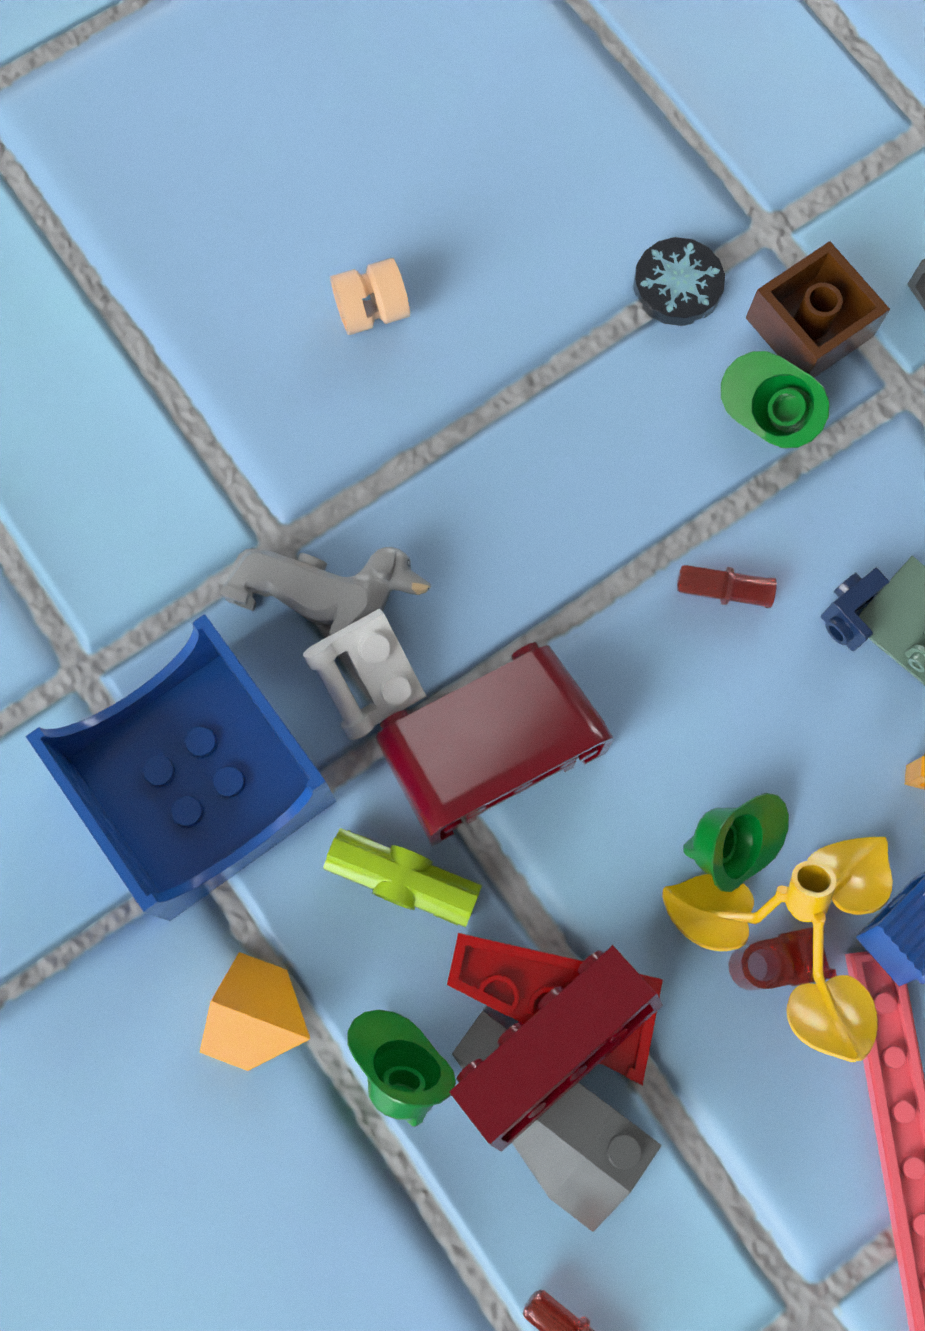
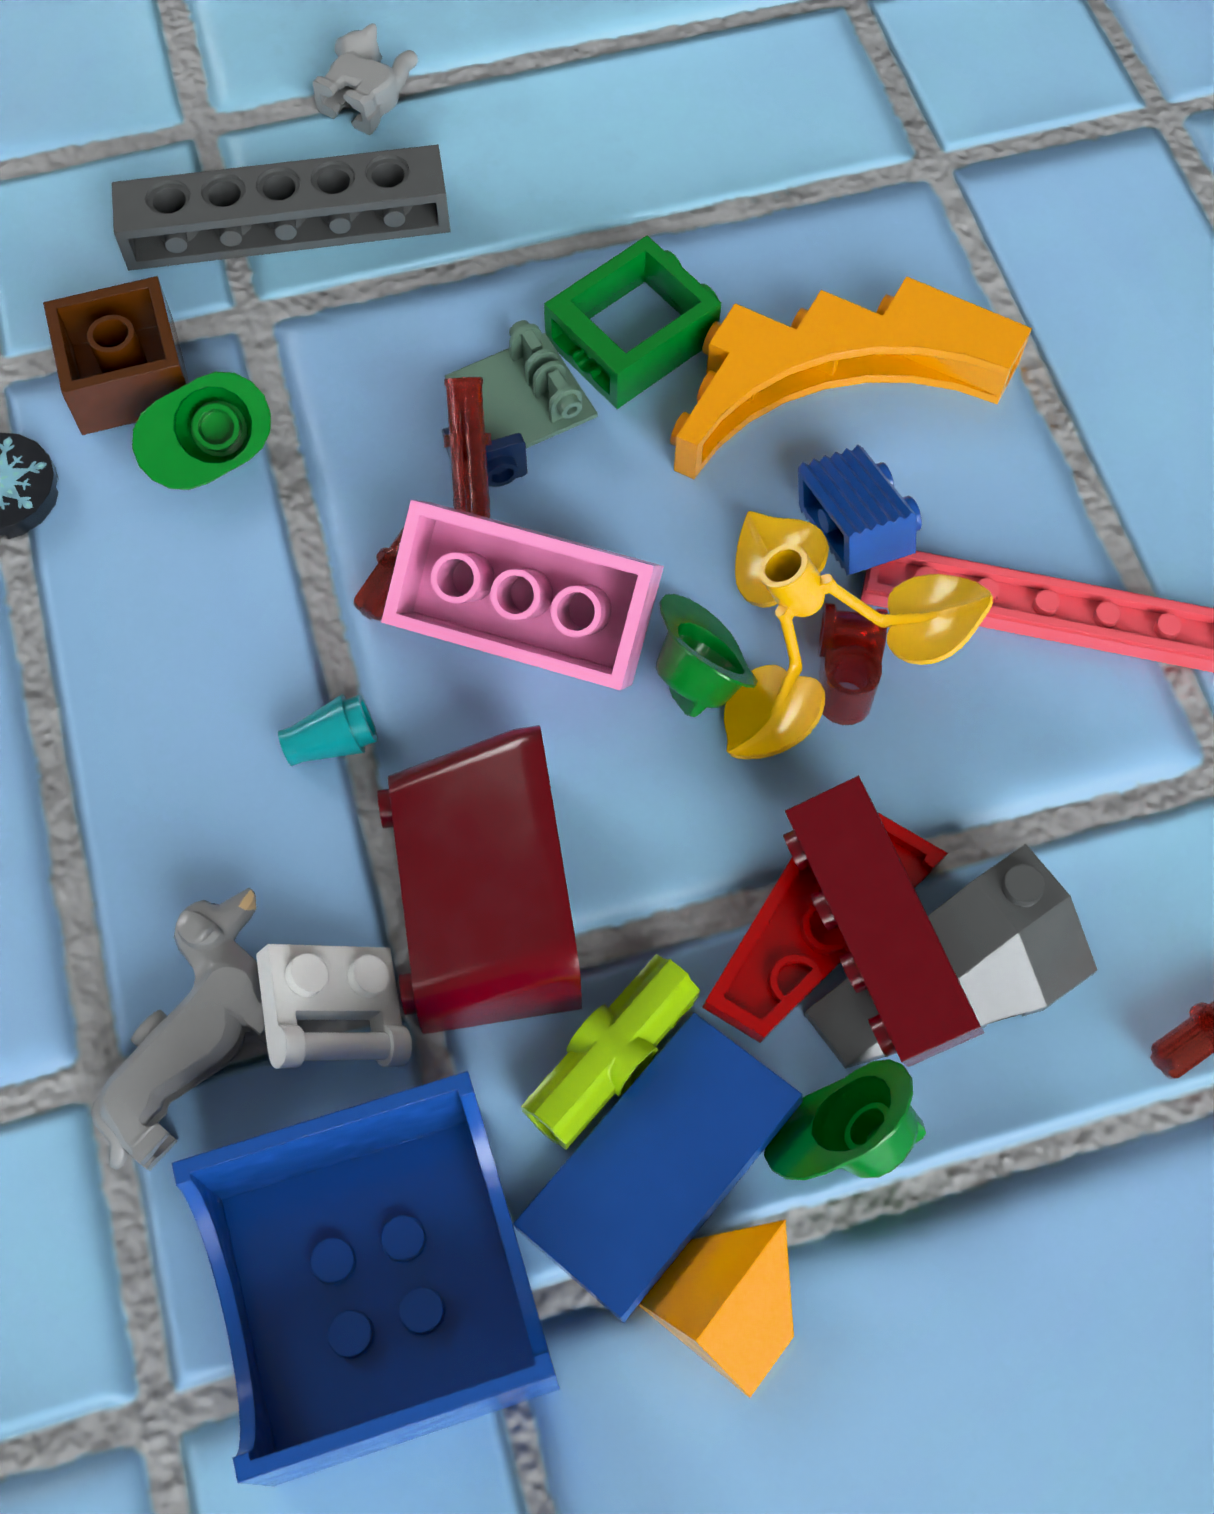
camera: 70 degrees left, 10 degrees down
(335, 939) = (658, 1165): none -> blue tile
(573, 593) = (331, 731): none -> teal cone
(728, 687) = (522, 594): none -> bright pink brick
(838, 597) = (464, 408): none -> clear red pin

